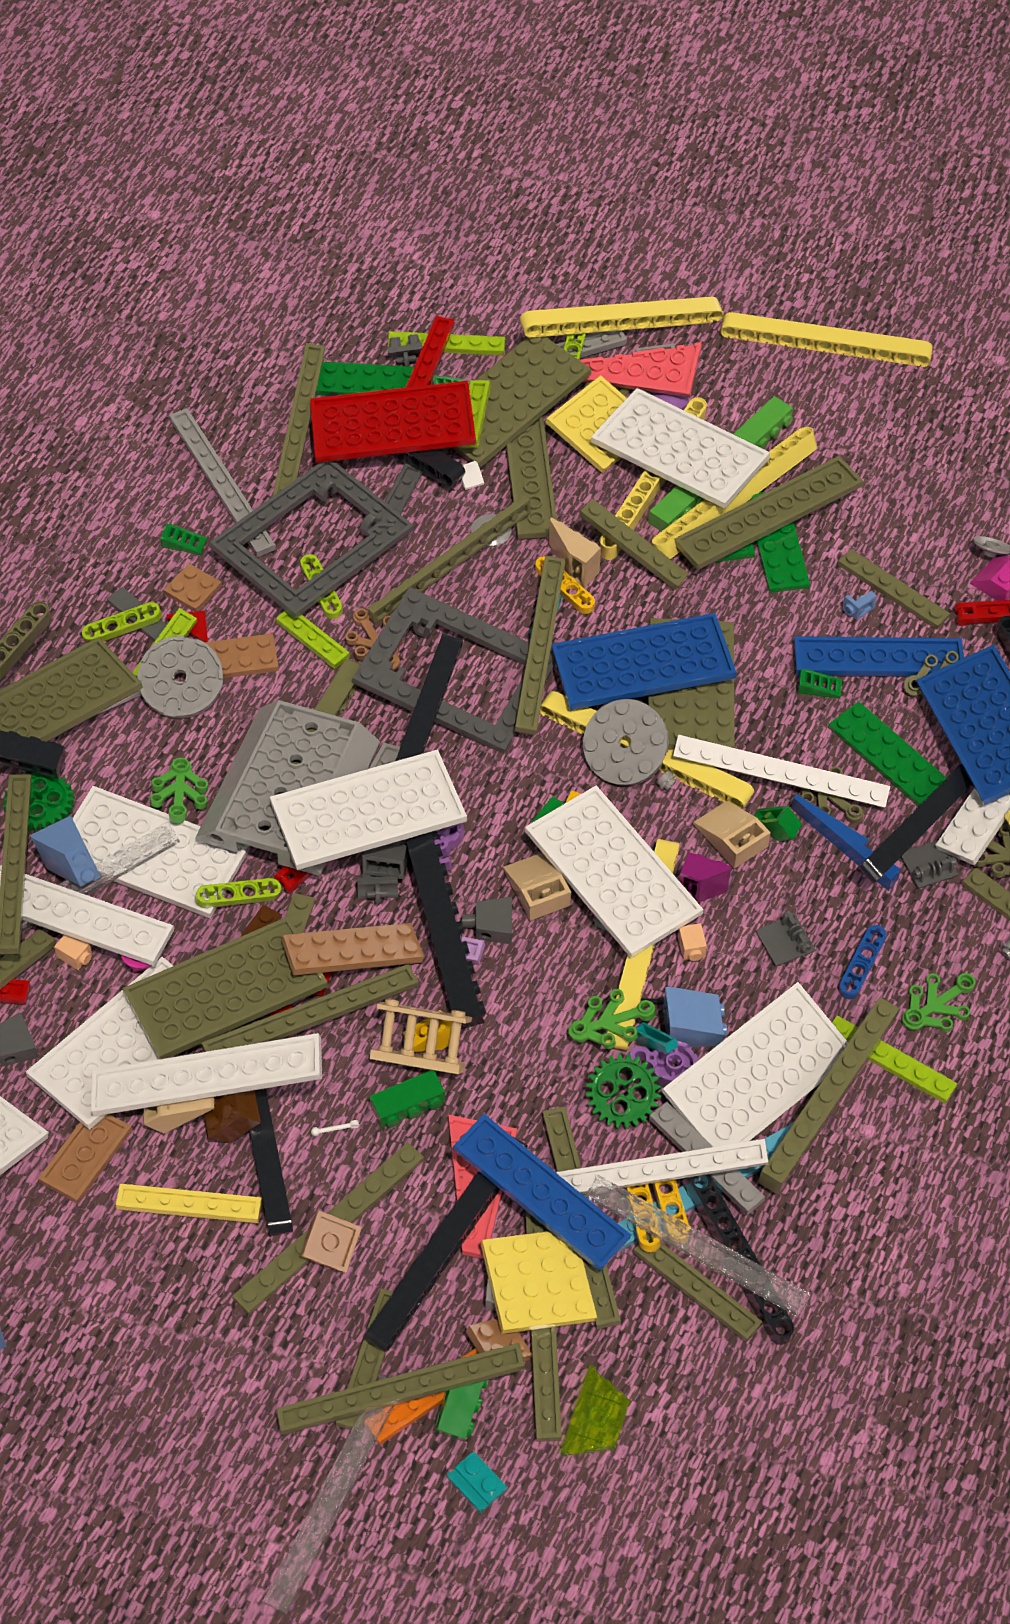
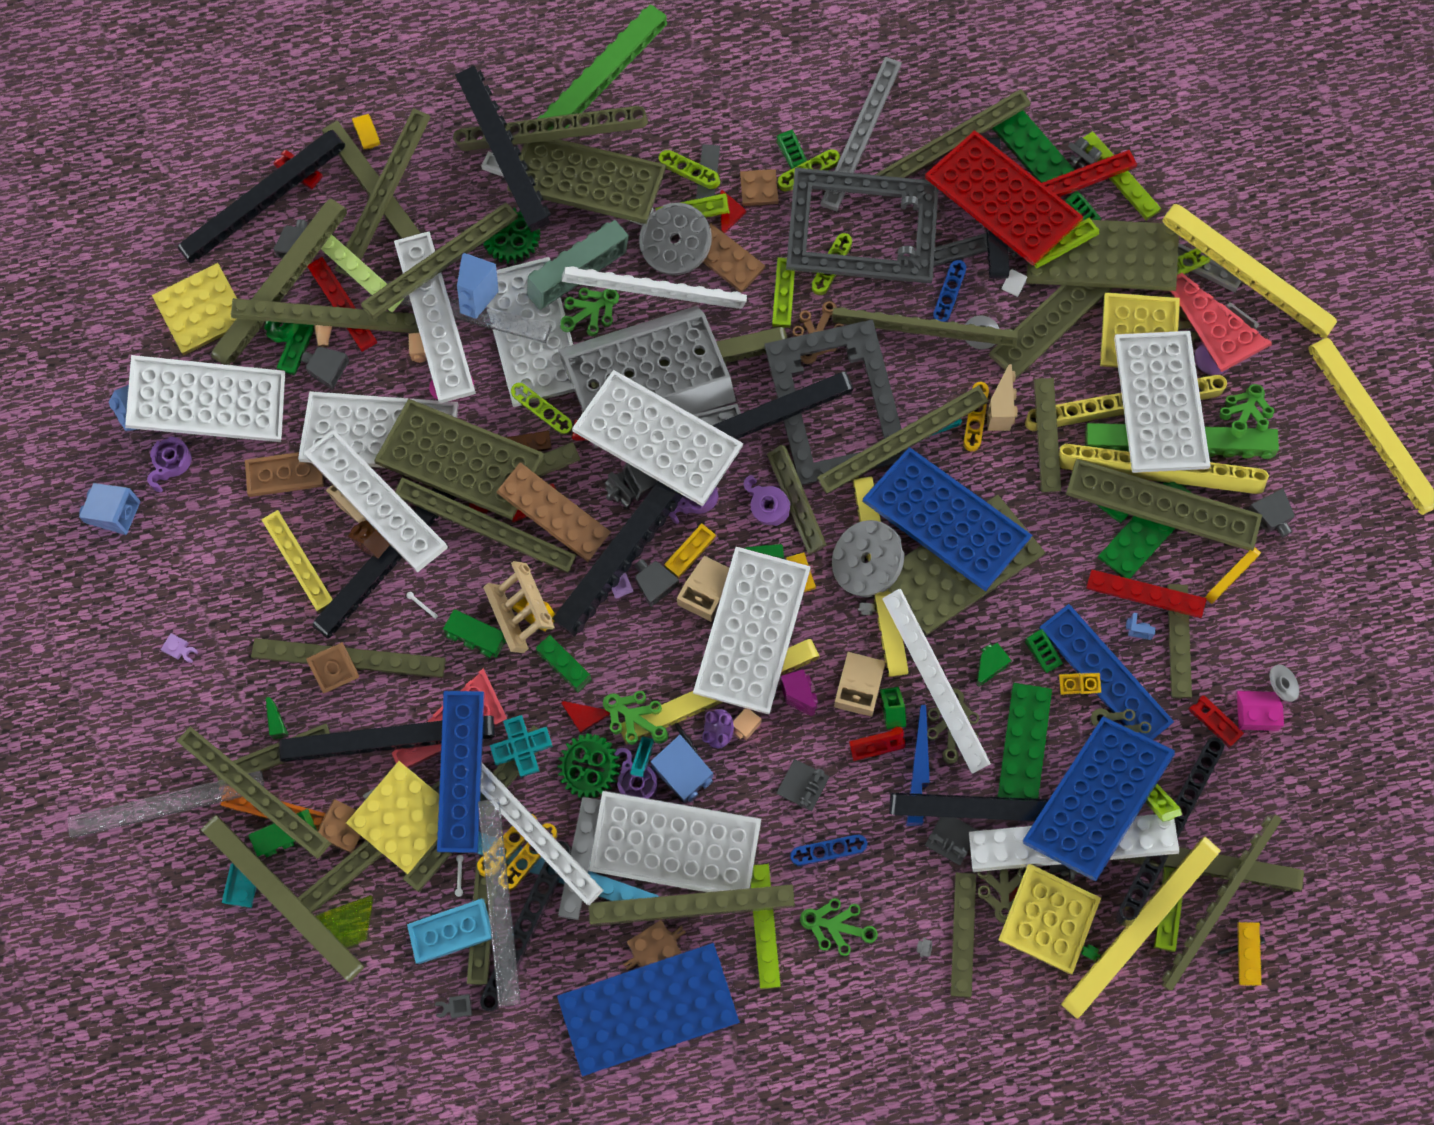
camera: 55 degrees right, 15 degrees up
(128, 764) = (593, 253): none -> sand green brick
(173, 1376) = (176, 647): none -> lavender plate
(214, 527) = (787, 176): none -> lime beam
(215, 719) = (655, 288): none -> white plate
(336, 1333) = (275, 723): none -> green slope
(431, 526) = (948, 292): none -> blue beam
(487, 871) = (690, 551): none -> yellow plate
(492, 783) = (762, 498): none -> medium lavender piece
(505, 1045) = (563, 663): none -> green brick
(517, 761) = (800, 506): none -> olive plate
(526, 1443) = (283, 898): none -> olive beam
(557, 1130) = (521, 746): none -> teal plate
(568, 1067) = (583, 715): none -> red tile
(649, 1290) = (458, 892): none -> white hinge
(678, 965) = (718, 728): none -> medium lavender dish
(685, 1317) = (450, 931): none -> medium azure plate
(728, 391) = (1253, 394): none -> bright green plant
(762, 1364) = (458, 1006): none -> dark grey plate
(798, 726) = (991, 662): none -> green slope
(798, 857) = (877, 744): none -> red plate
(834, 579) = (1146, 593): none -> red plate
(840, 1160) = (653, 945): none -> medium nougat plate
(845, 446) = (1275, 512): none -> dark grey torso
(870, 516) = (1232, 575): none -> yellow beam
(872, 677) = (1080, 683): none -> yellow slope
(894, 1204) = (648, 1009): none -> blue plate

